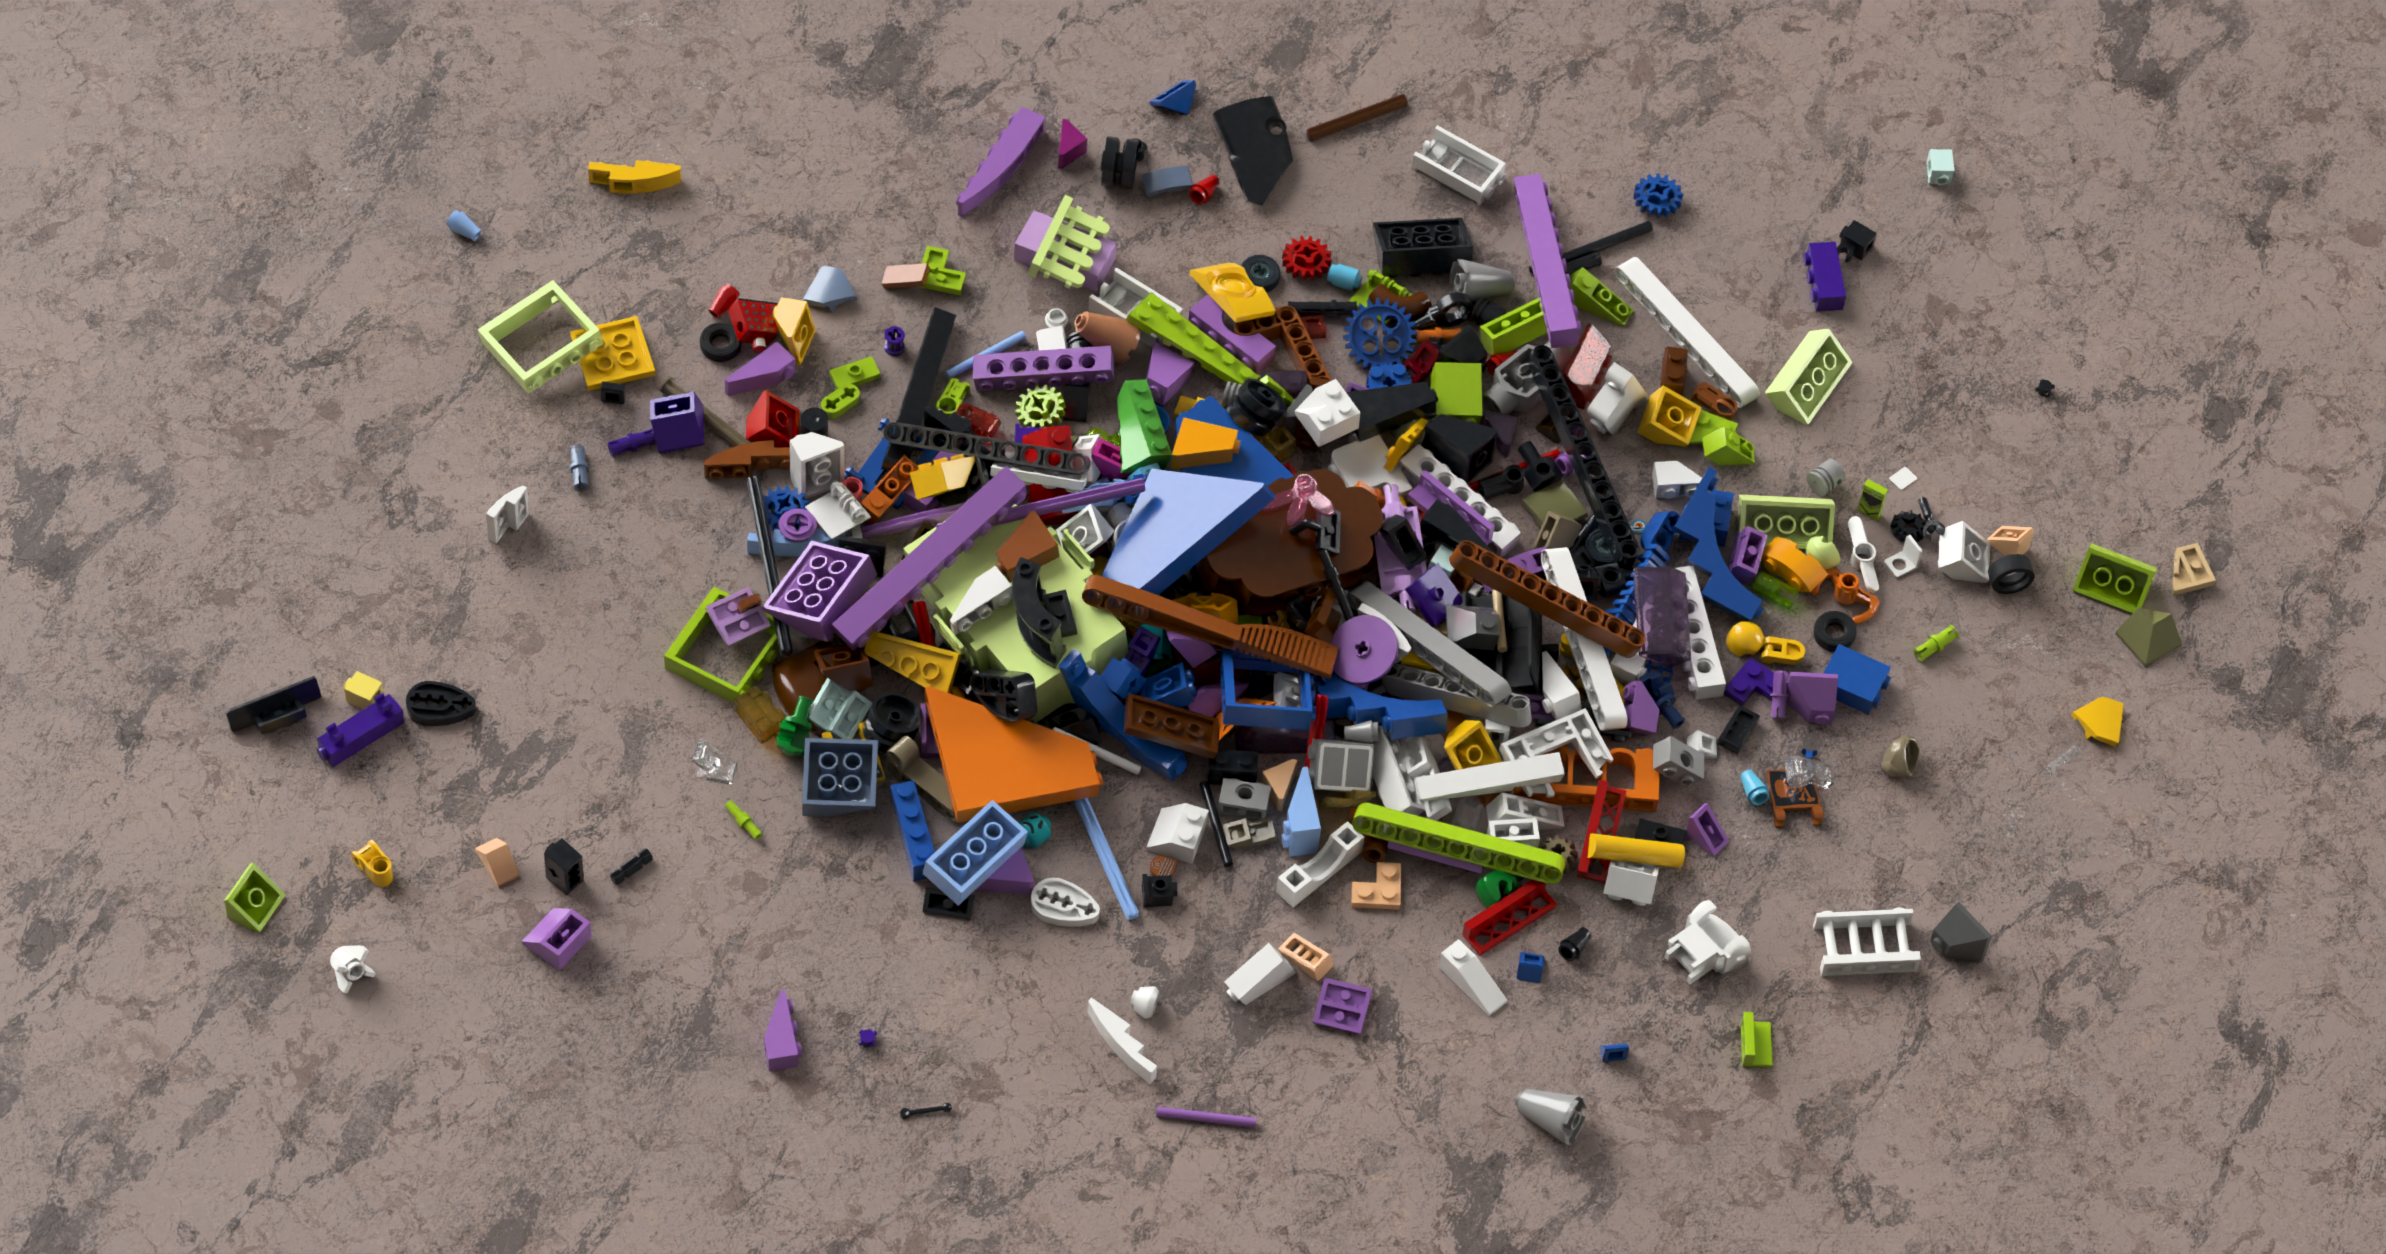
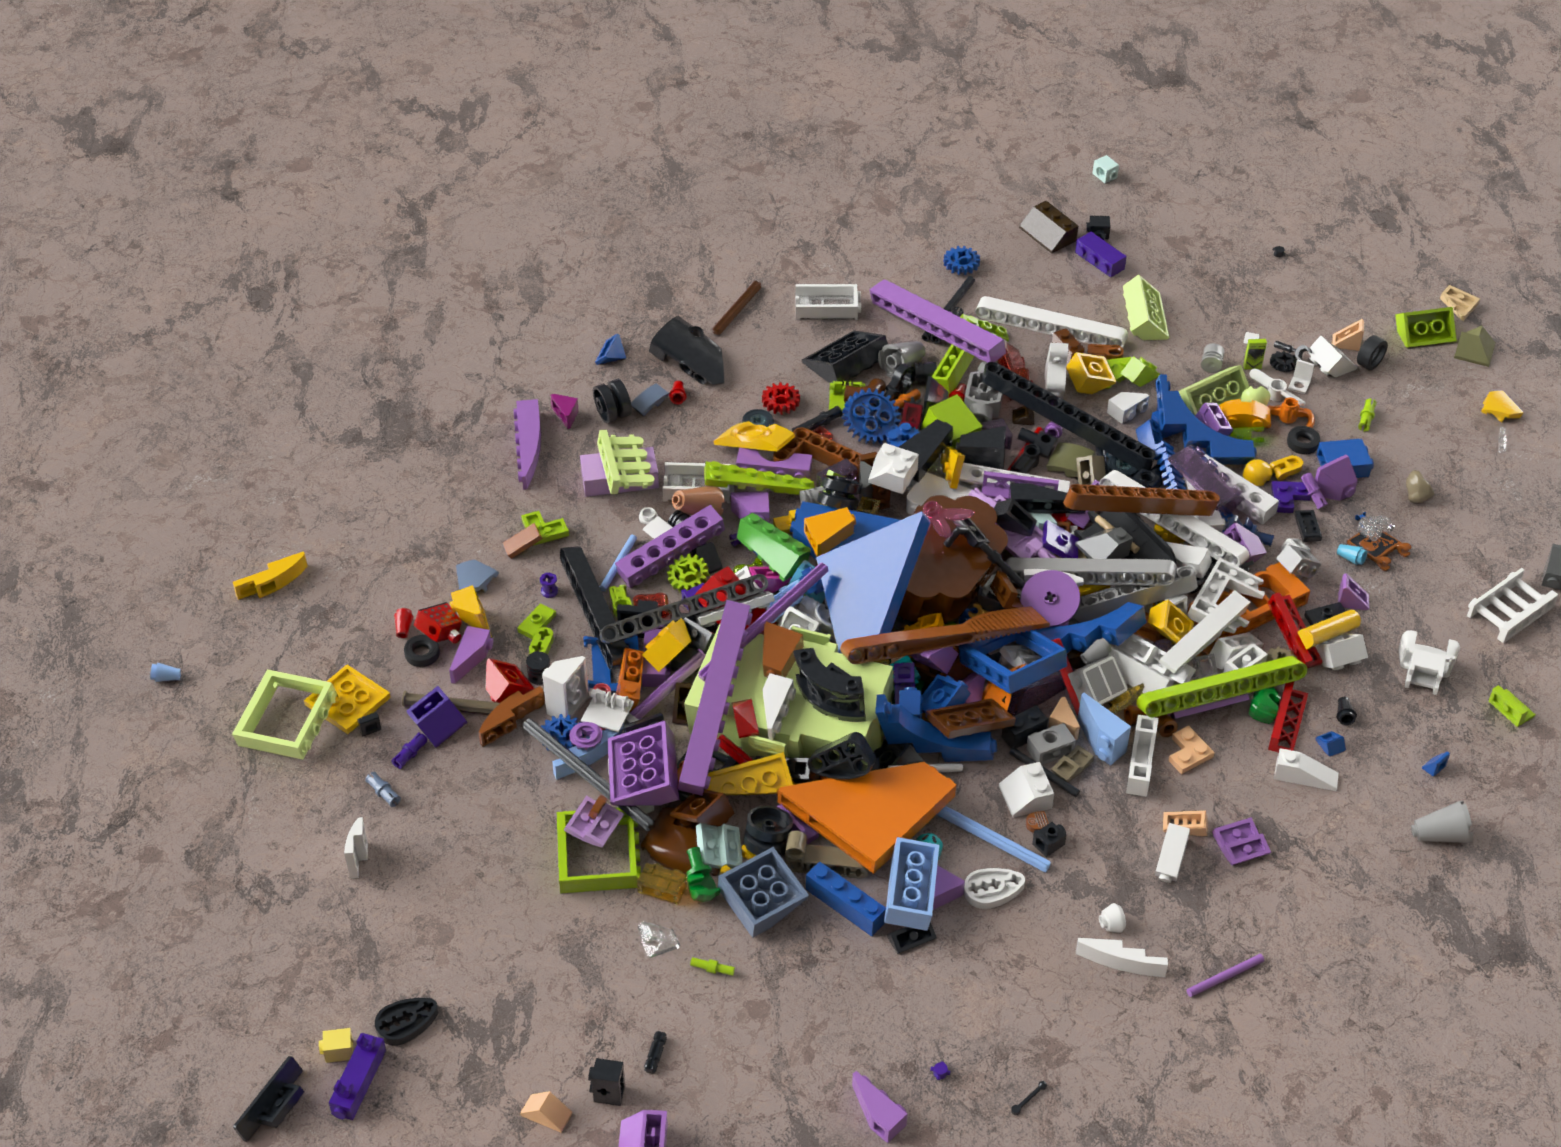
camera: 30 degrees left, 10 degrees down
(944, 596) = (745, 718): none -> red slope
(1344, 277) = (815, 396): medium azure brick -> none
(1798, 208) = (1049, 227): none -> slope

